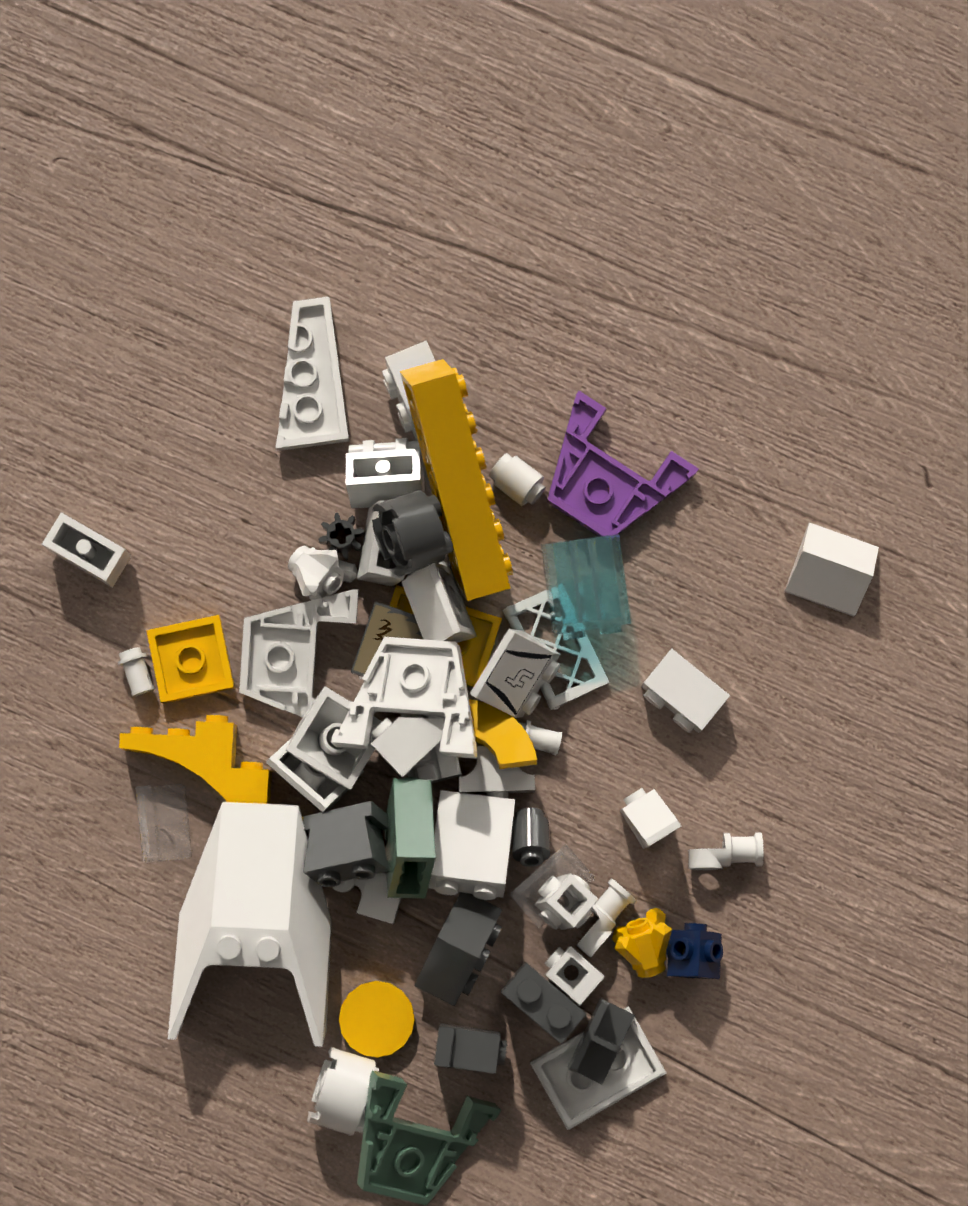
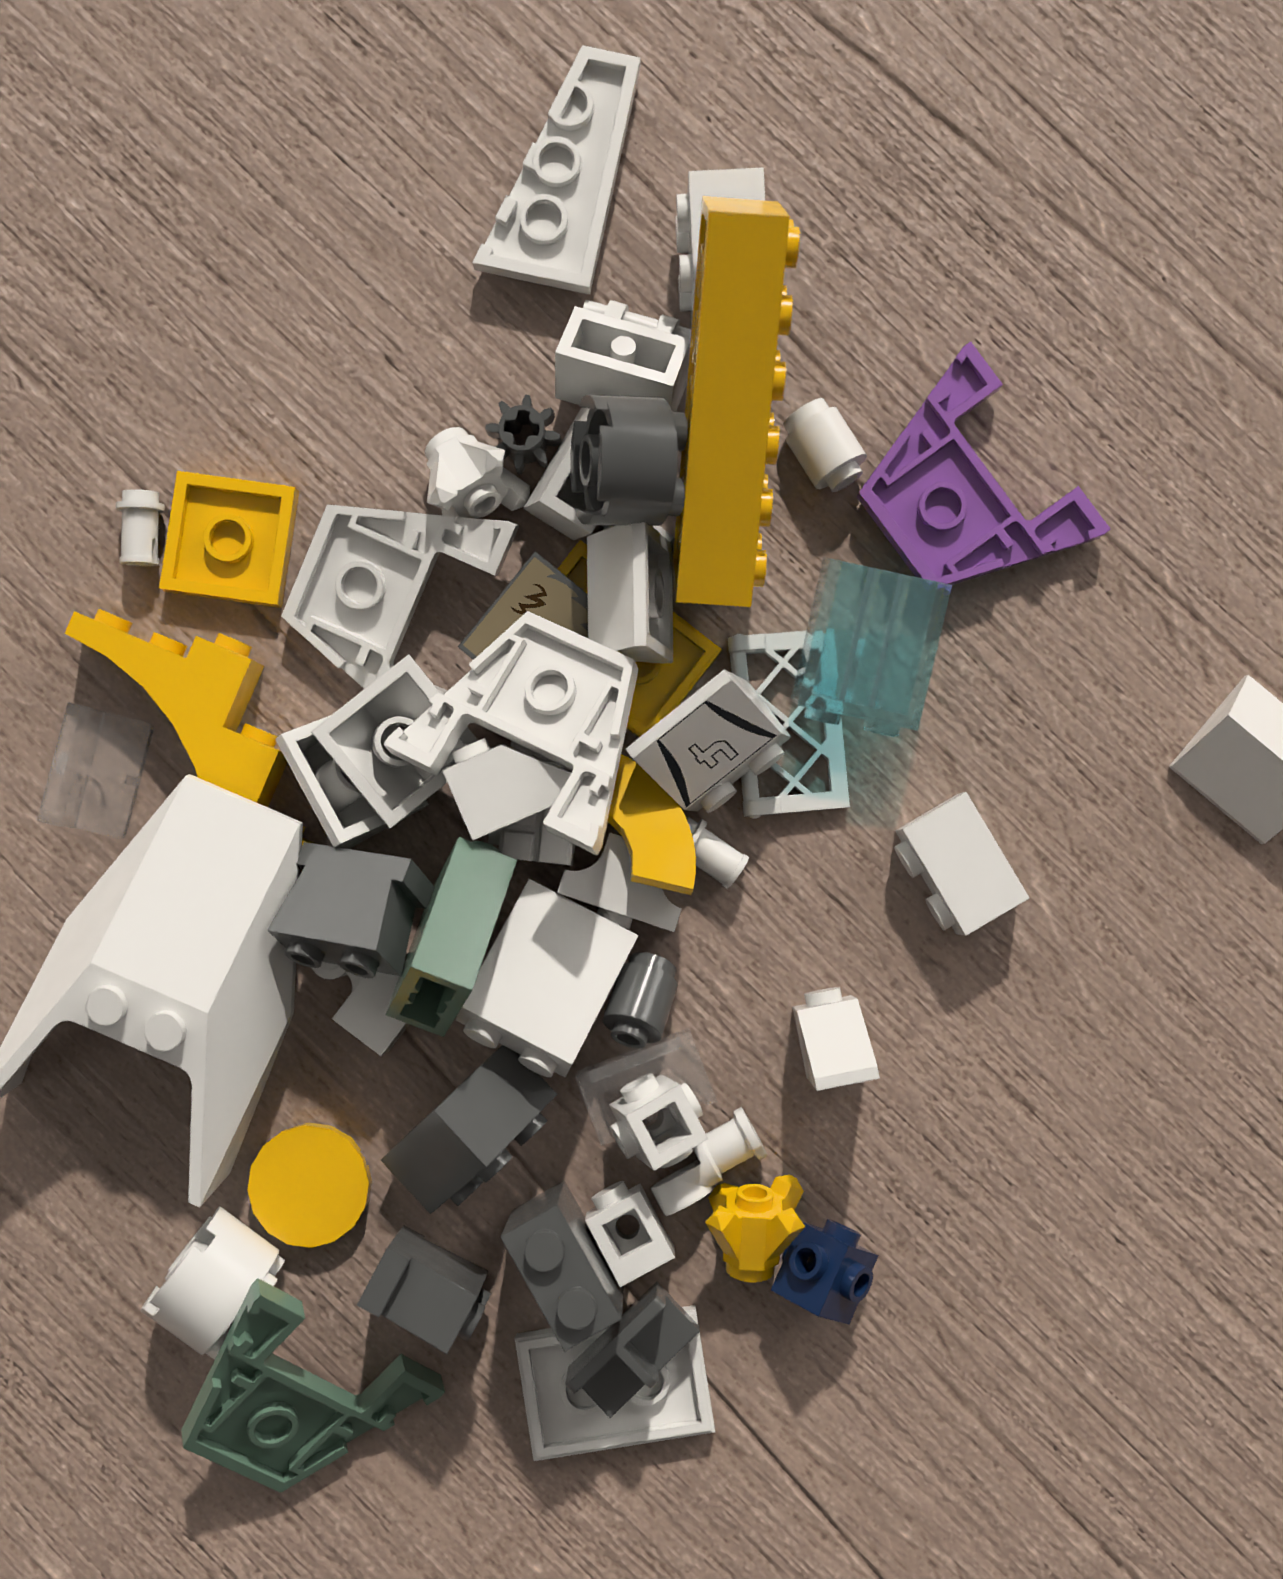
camera: 30 degrees right, 5 degrees up
(86, 549) = (126, 313): white brick -> none
(732, 851) = (943, 1135): white connector -> none

